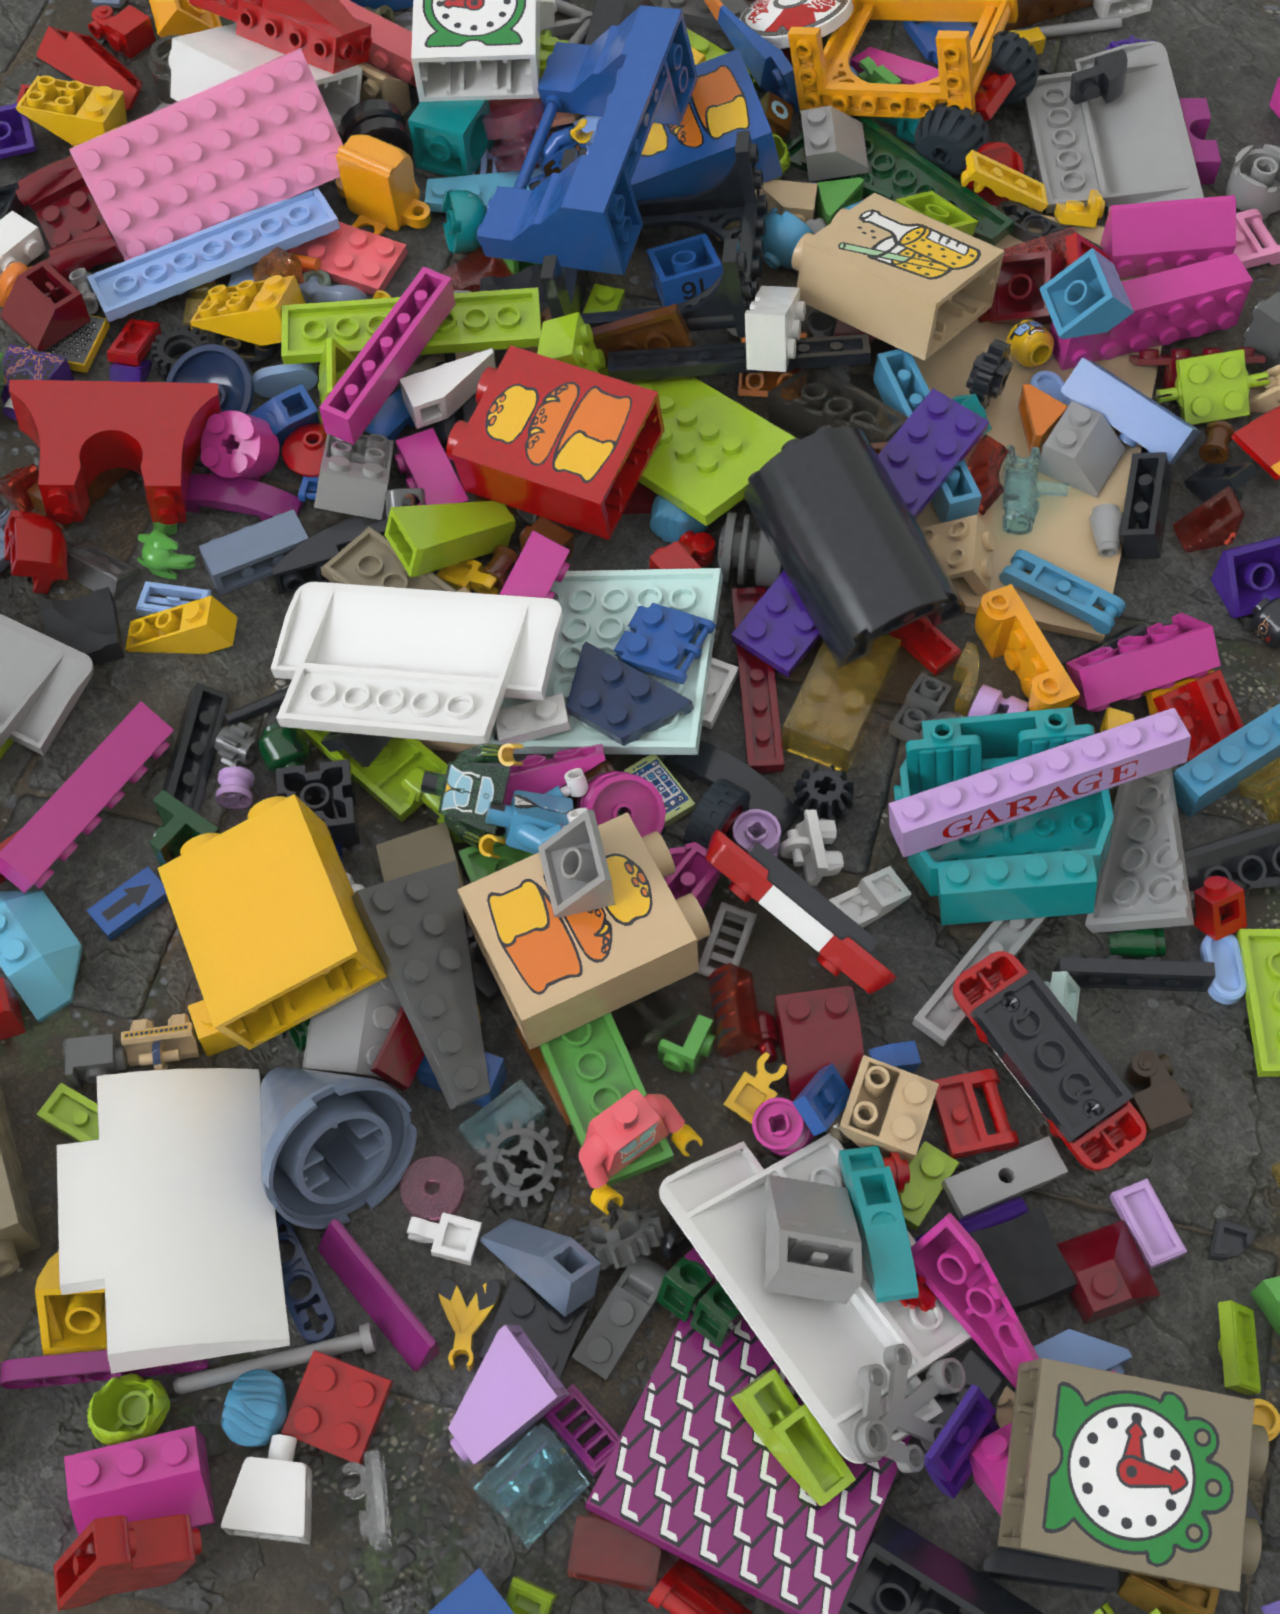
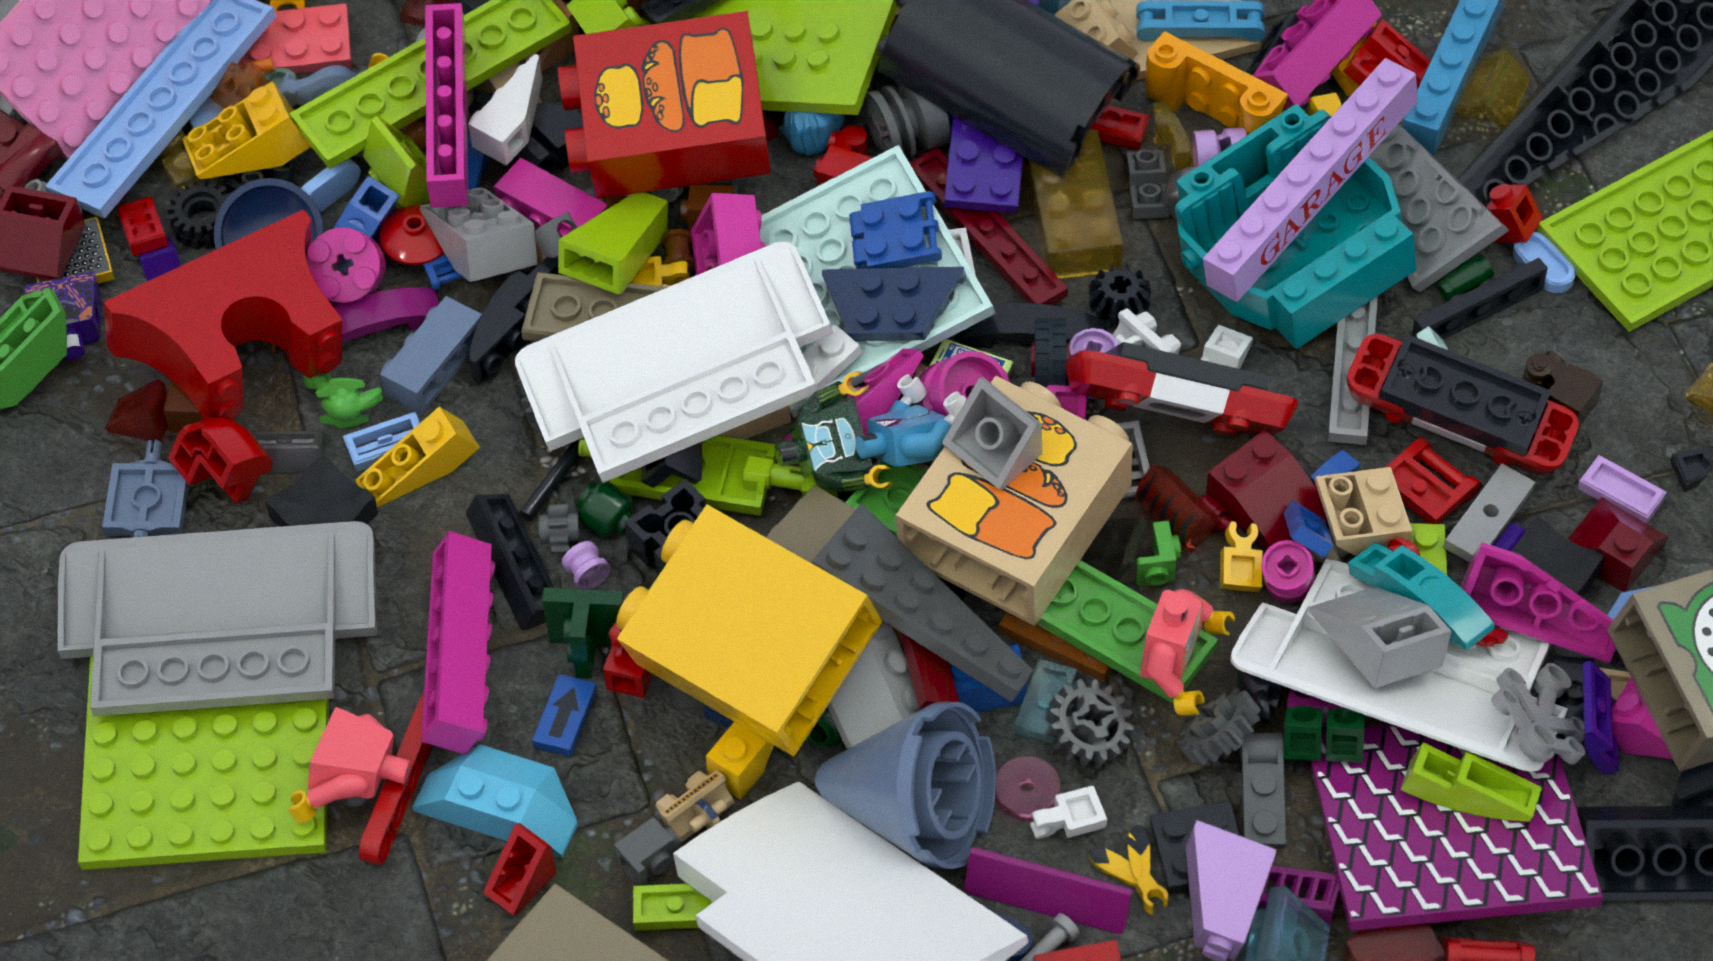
camera: 30 degrees left, 5 degrees down
(547, 1262) = (1179, 778): sand blue slope -> none

